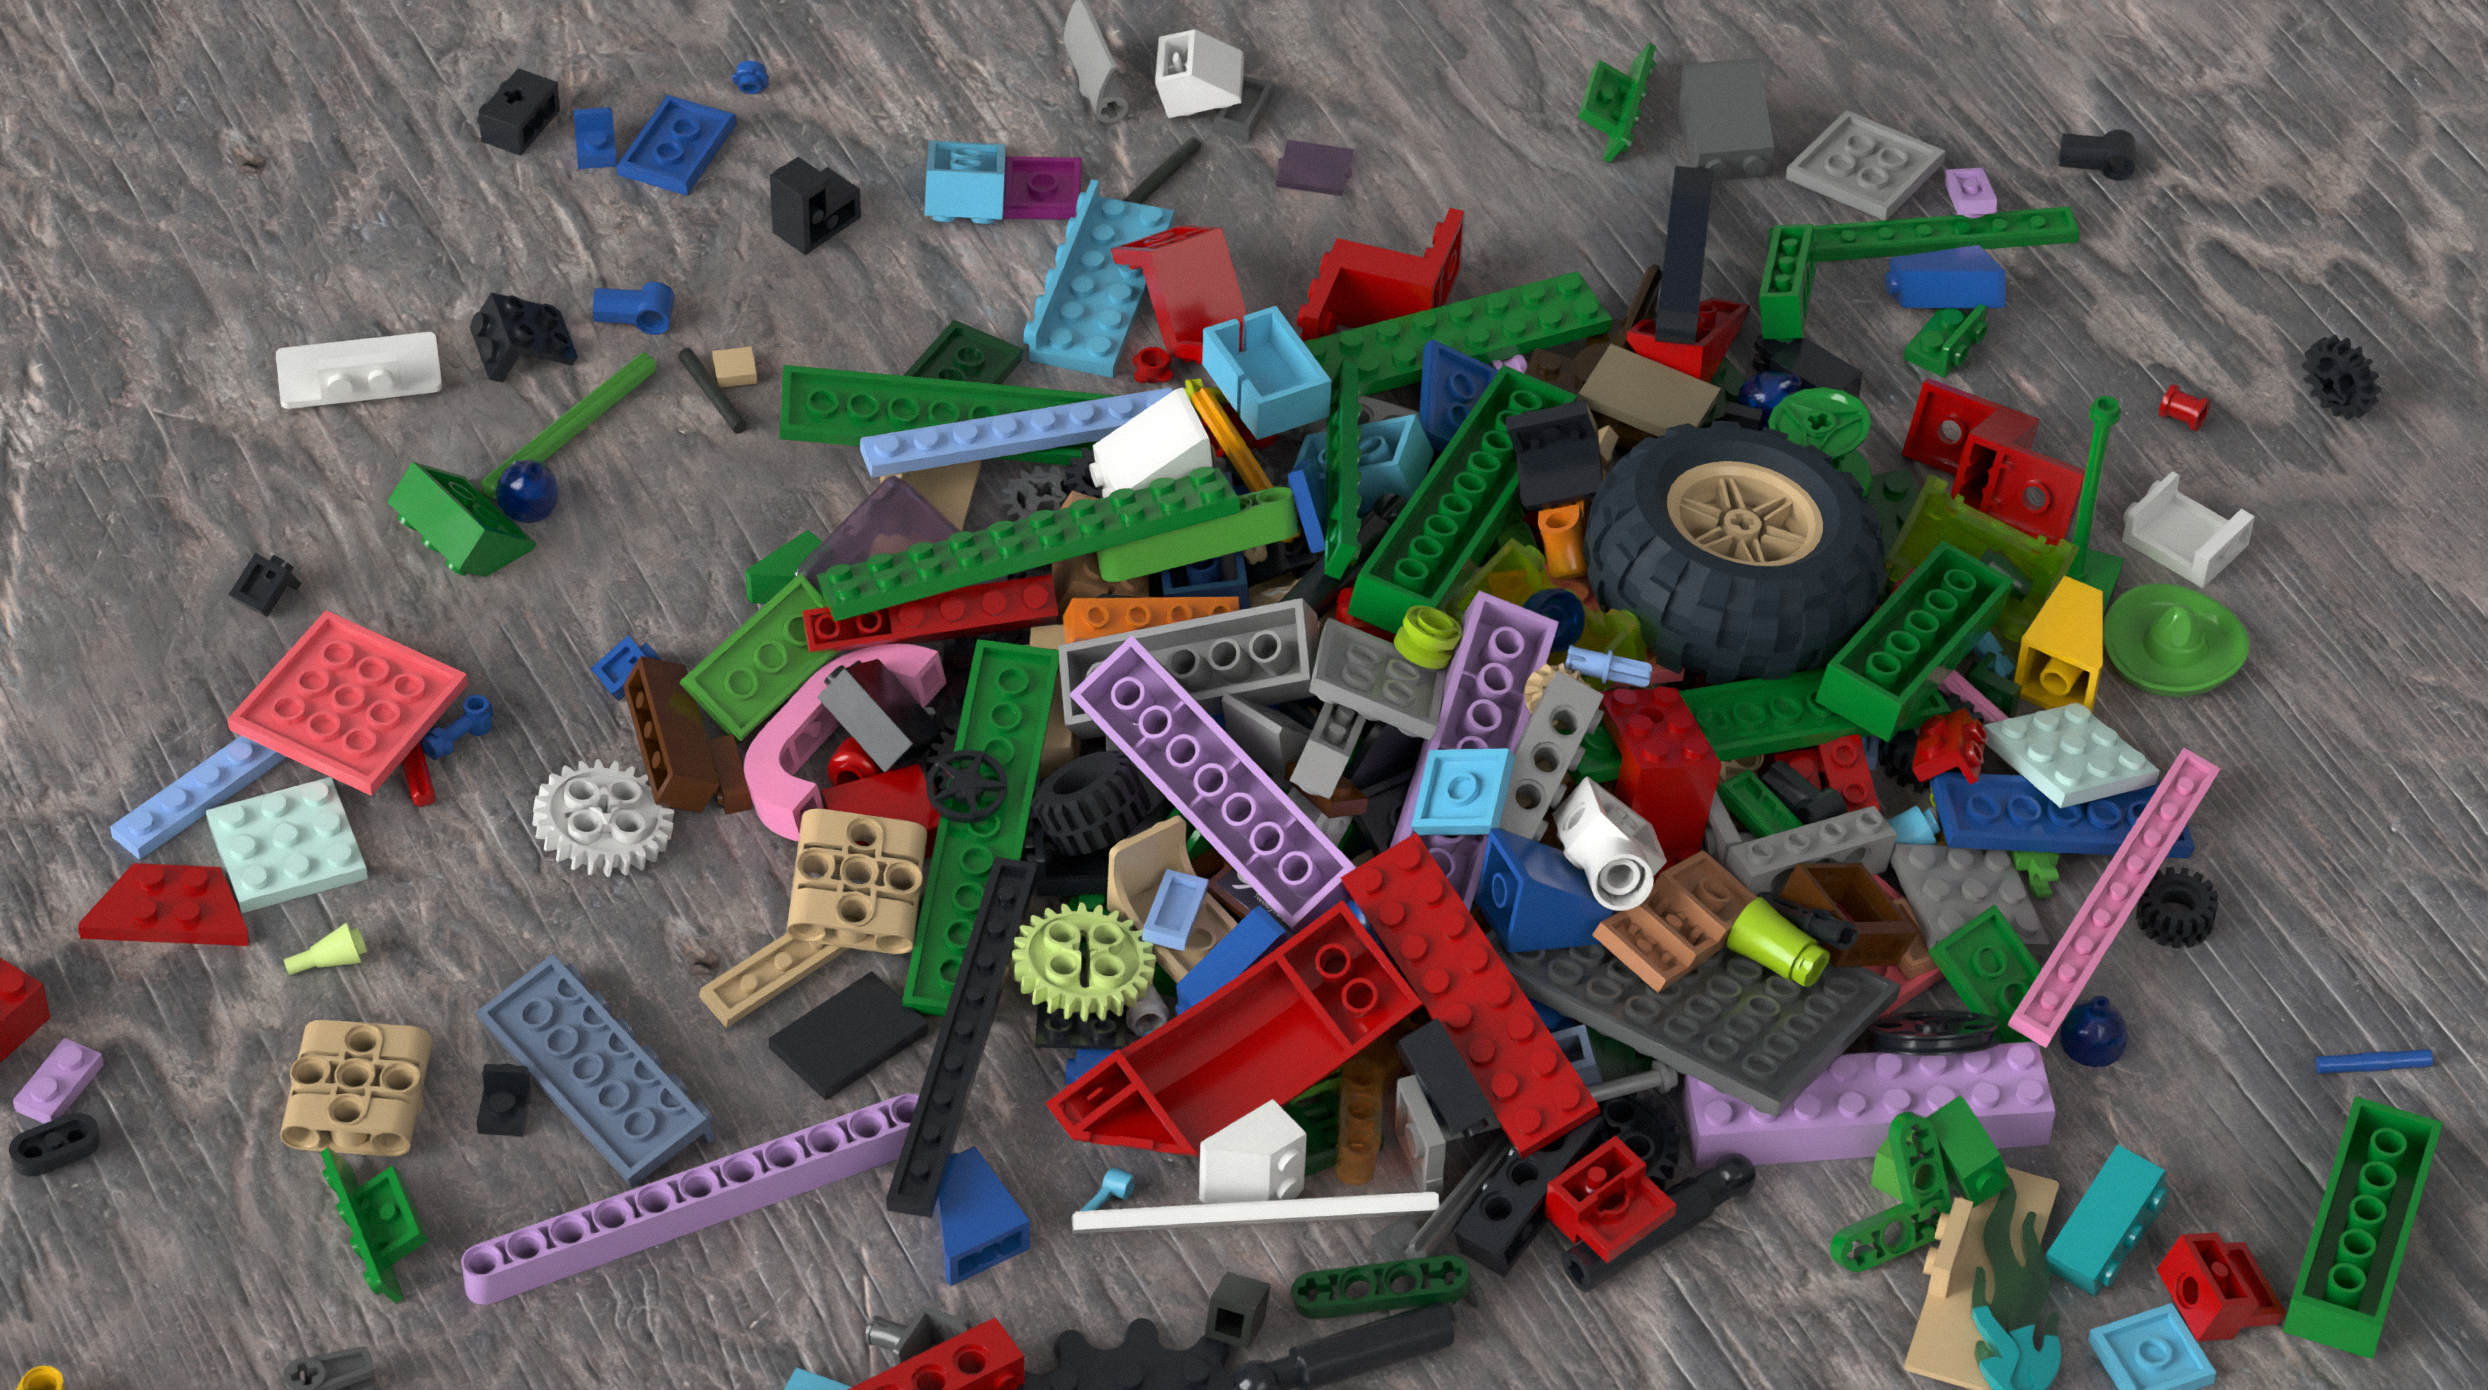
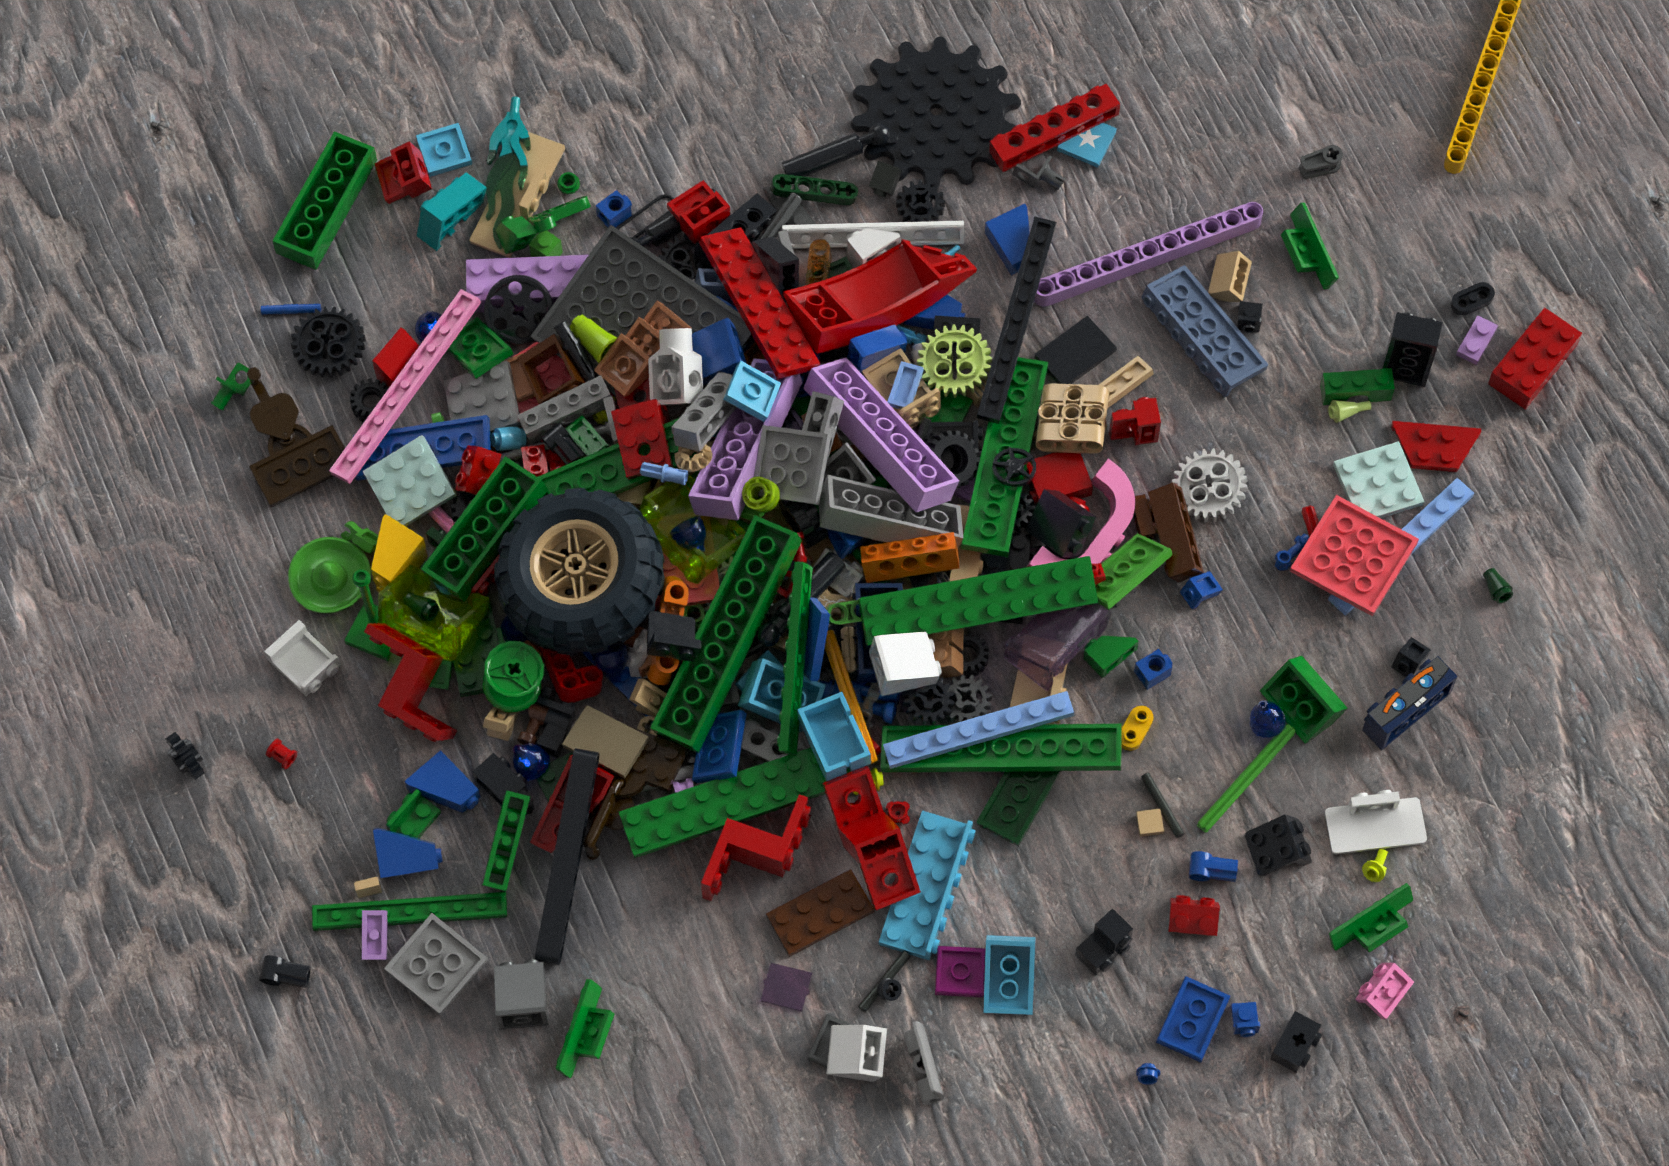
camera: 175 degrees left, 20 degrees up
(92, 686) = (1498, 587): none -> dark green cone
(197, 978) = (1412, 348): none -> black brick
(279, 498) = (1409, 702): none -> brick
(336, 968) = (1340, 386): none -> green arch
(356, 1088) = (1339, 339): tan connector -> none
(367, 315) = (1375, 867): none -> neon yellow plate
(373, 242) = (1376, 923): none -> green bracket
(374, 176) = (1385, 989): none -> bright pink bracket
(538, 1165) = (1230, 277): none -> tan brick
(667, 255) = (1194, 915): none -> red bracket
(719, 553) = (1146, 675): none -> blue brick
(720, 891) = (1141, 422): none -> red brick
(753, 486) = (1137, 727): none -> yellow plate
(1154, 156) = (894, 993): none -> black bush
(1162, 1274) = (920, 202): none -> black gear
(1283, 243) = (820, 912): none -> reddish brown plate
(1684, 1291) = (643, 209): none -> black piece
(1782, 1241) = (610, 217): none -> blue brick
(1886, 1288) = (568, 177): none -> green plate
(1898, 366) = (444, 784): none -> blue slope
(2000, 245) = (367, 887): none -> tan tile
(2127, 696) = (363, 538): none -> bright green plate
(2141, 953) = (394, 357): none -> red slope
(2299, 810) = (293, 462): none -> dark brown plate
(2316, 993) = (349, 344): none -> black gear
(2442, 919) = (230, 387): none -> green bracket

